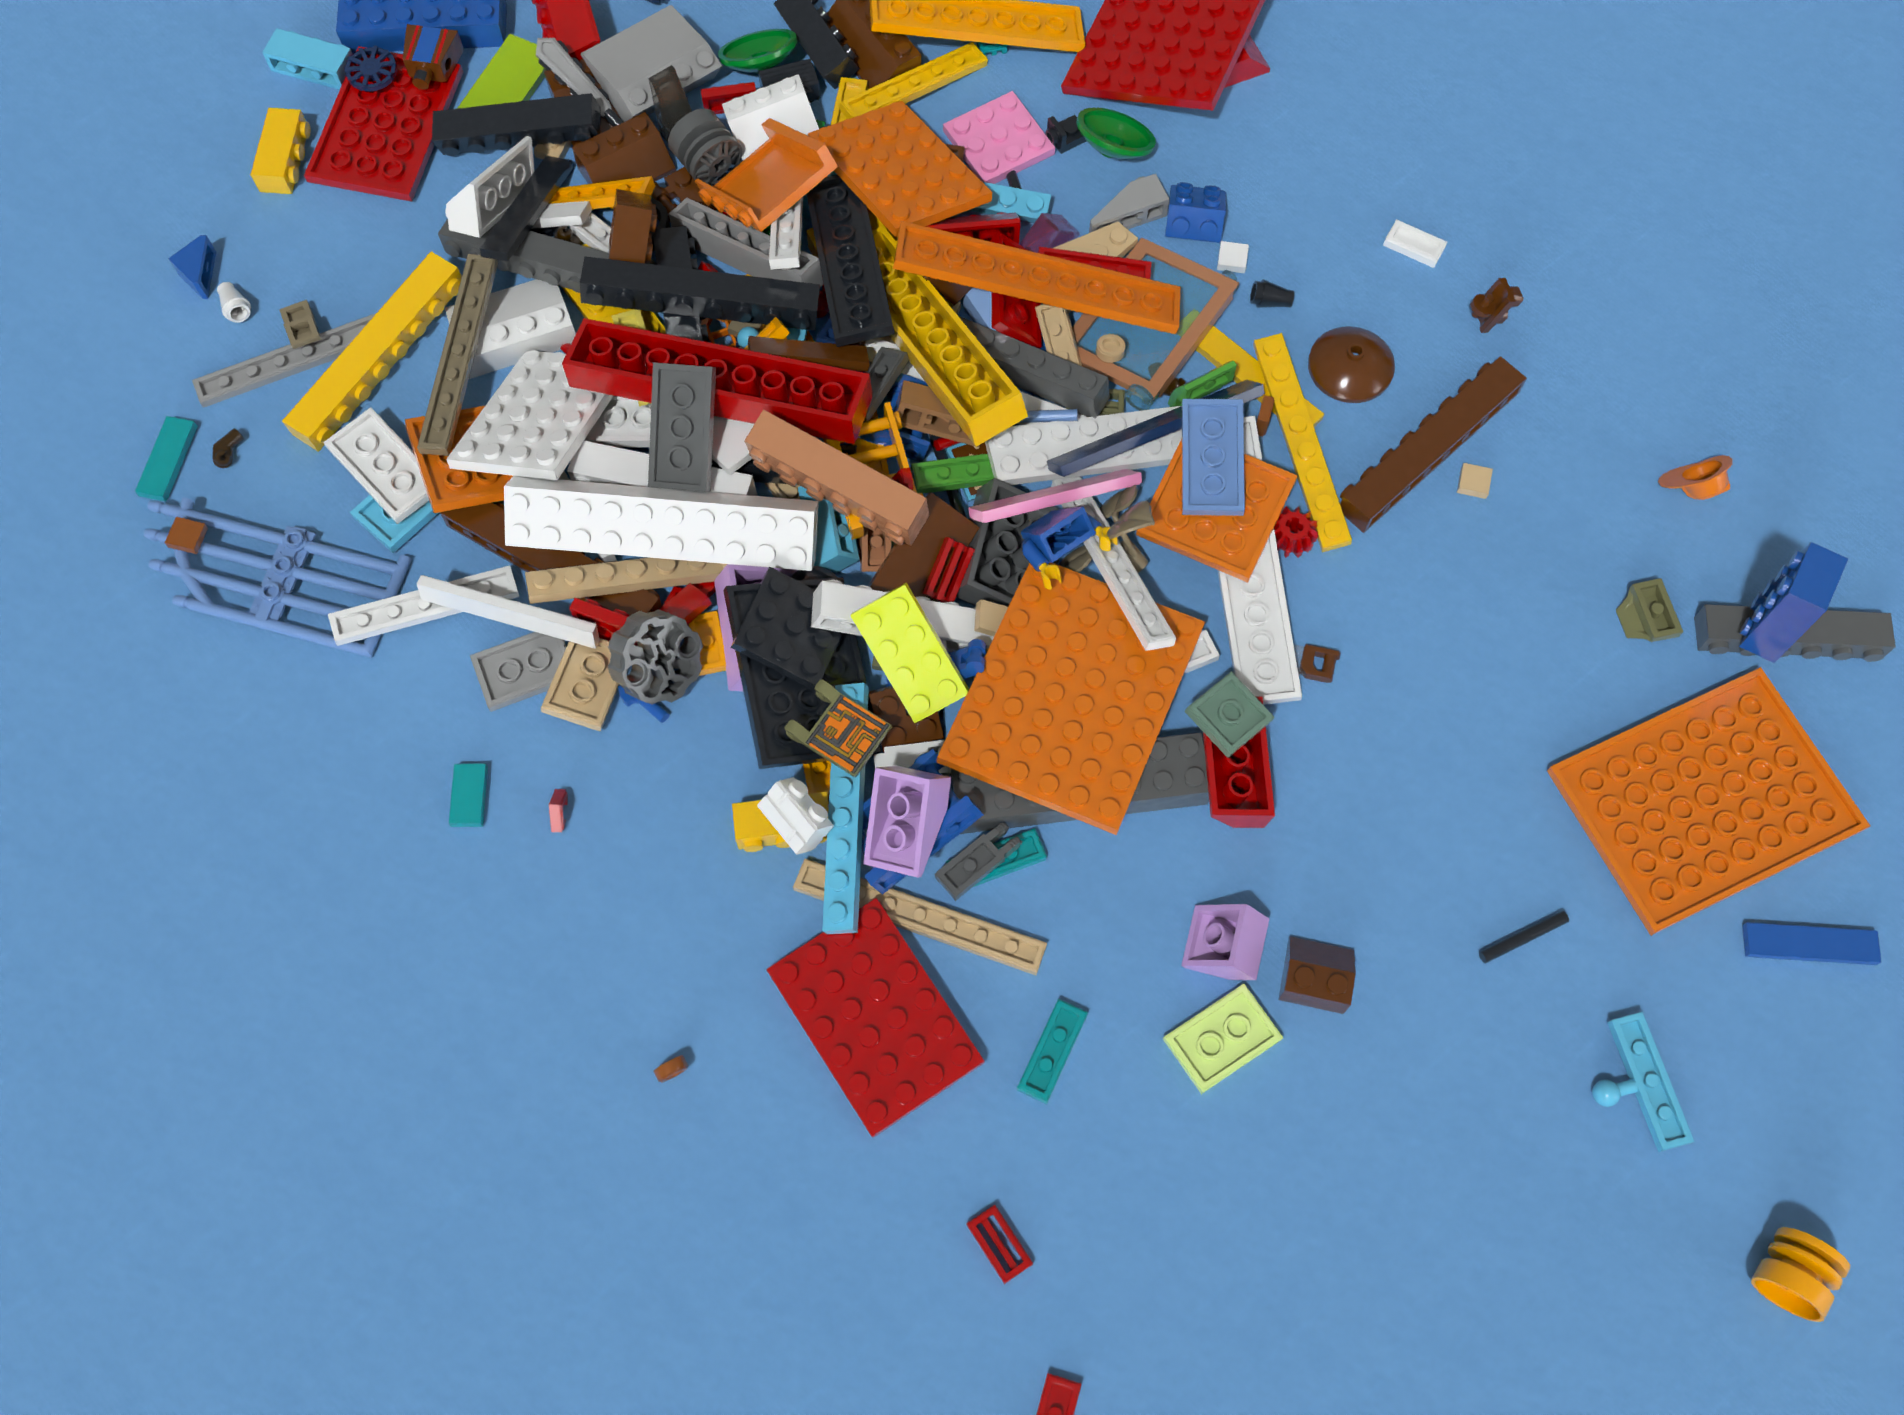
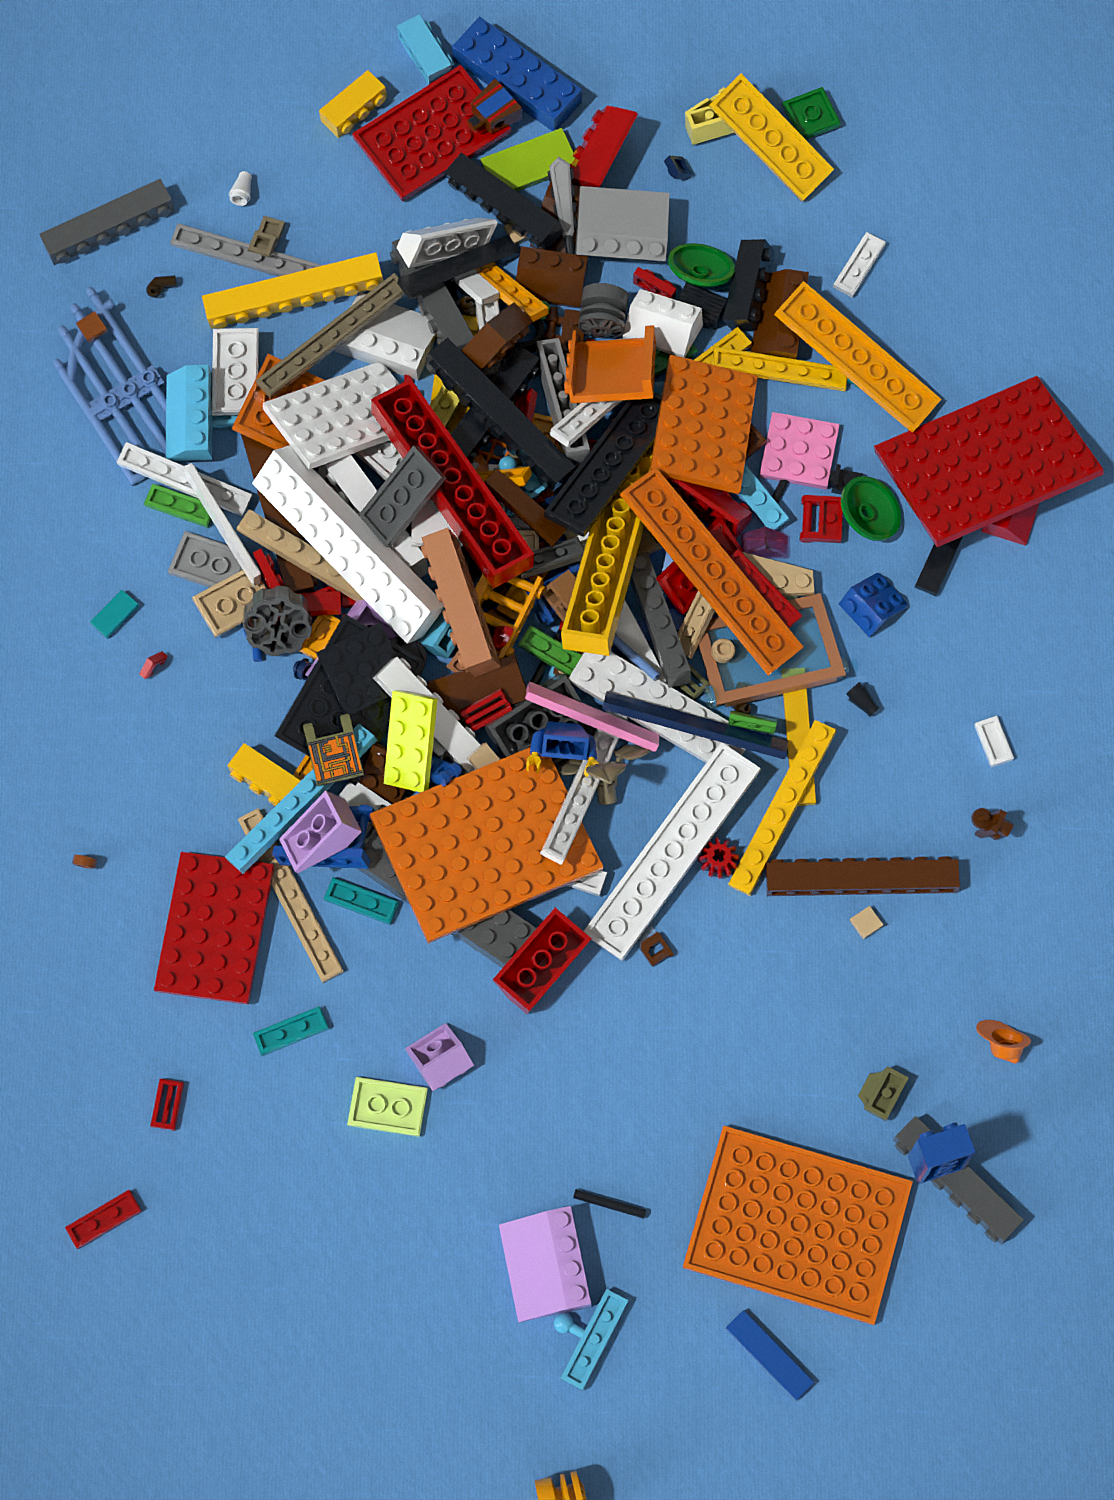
camera: 45 degrees right, 5 degrees up
(111, 432) = (107, 222): none -> dark grey brick
(166, 458) = (123, 263): teal tile -> none
(196, 264) = (240, 146): blue slope -> none
(371, 68) = (452, 89): dark blue wheel -> none
(371, 537) = (189, 414): none -> medium azure slope
(439, 637) = (177, 505): none -> bright green tile
(668, 100) = (604, 264): clear smoke slope -> none
(719, 688) = (300, 668): none -> dark blue plate
(795, 815) = (266, 779): white brick -> none
(976, 862) = (345, 891): dark grey hinge -> none
(1083, 171) = (829, 519): none -> red plate
(1134, 205) = (835, 567): light grey slope -> none
(1213, 457) = (700, 772): medium blue plate -> none
(1214, 139) = (937, 567): none -> black tile
(1220, 541) = (680, 803): orange plate -> none
(1229, 714) = (559, 932): sand green tile -> none
(1232, 257) = (866, 653): white tile -> none
(1264, 415) = (776, 772): dark orange tile -> none
(1318, 975) = (472, 1118): slope -> none
(1347, 375) = (865, 799): reddish brown dish -> none
(1532, 1051) = (545, 1264): none -> lavender slope

